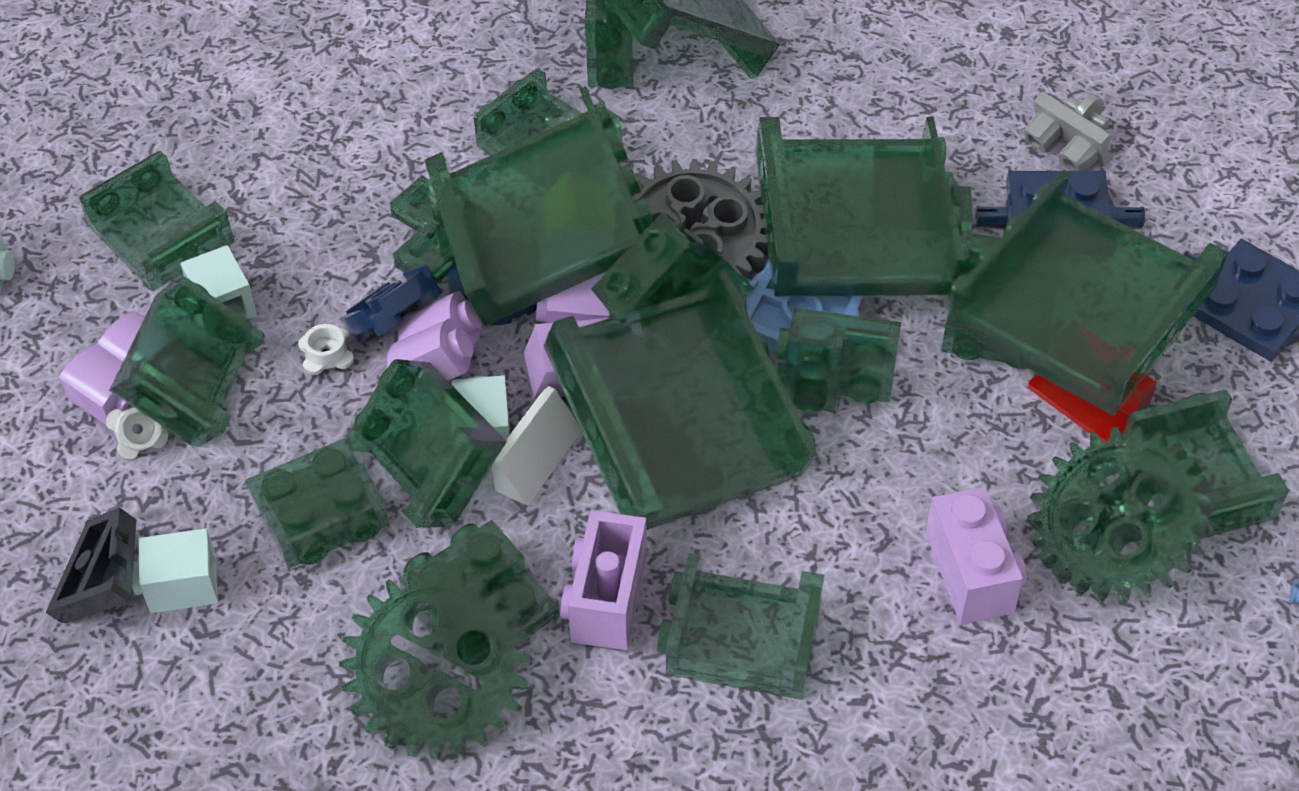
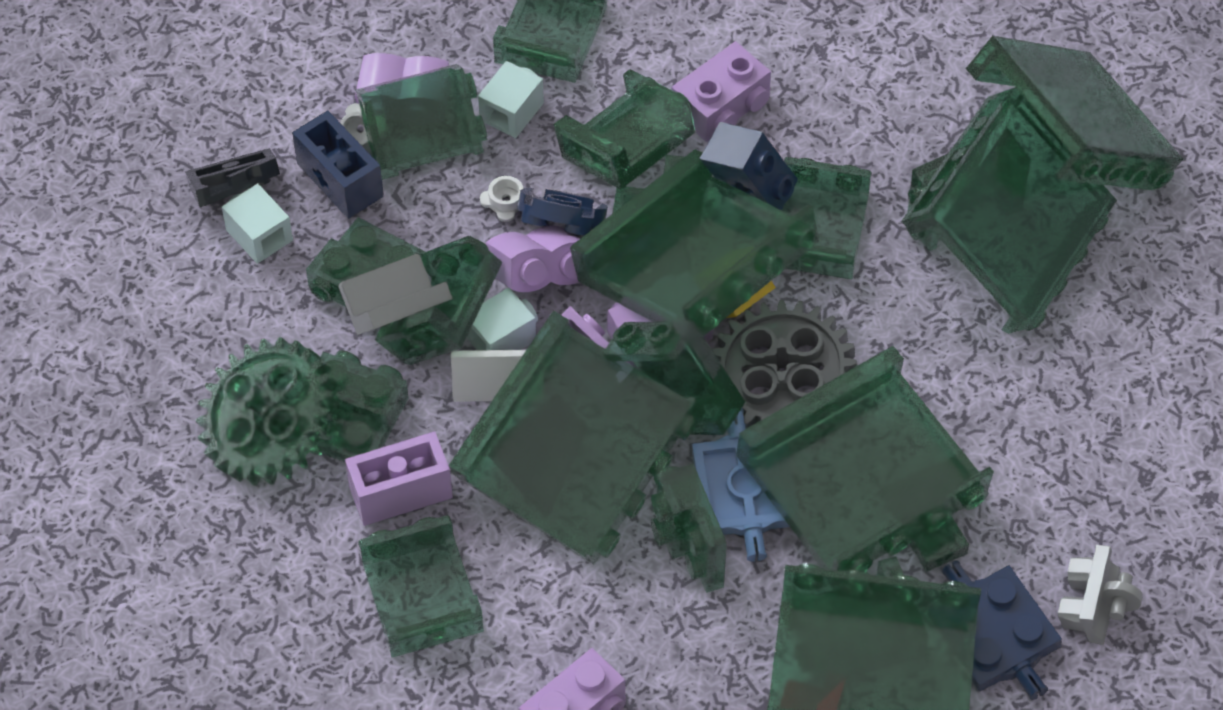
camera: 60 degrees right, 5 degrees up
(173, 459) = (338, 164): none -> dark blue brick
(338, 215) = (629, 132): none -> clear green panel
(352, 135) = (725, 89): none -> lavender brick
(388, 484) = (391, 294): none -> light grey panel
(469, 129) = (749, 164): none -> dark blue brick

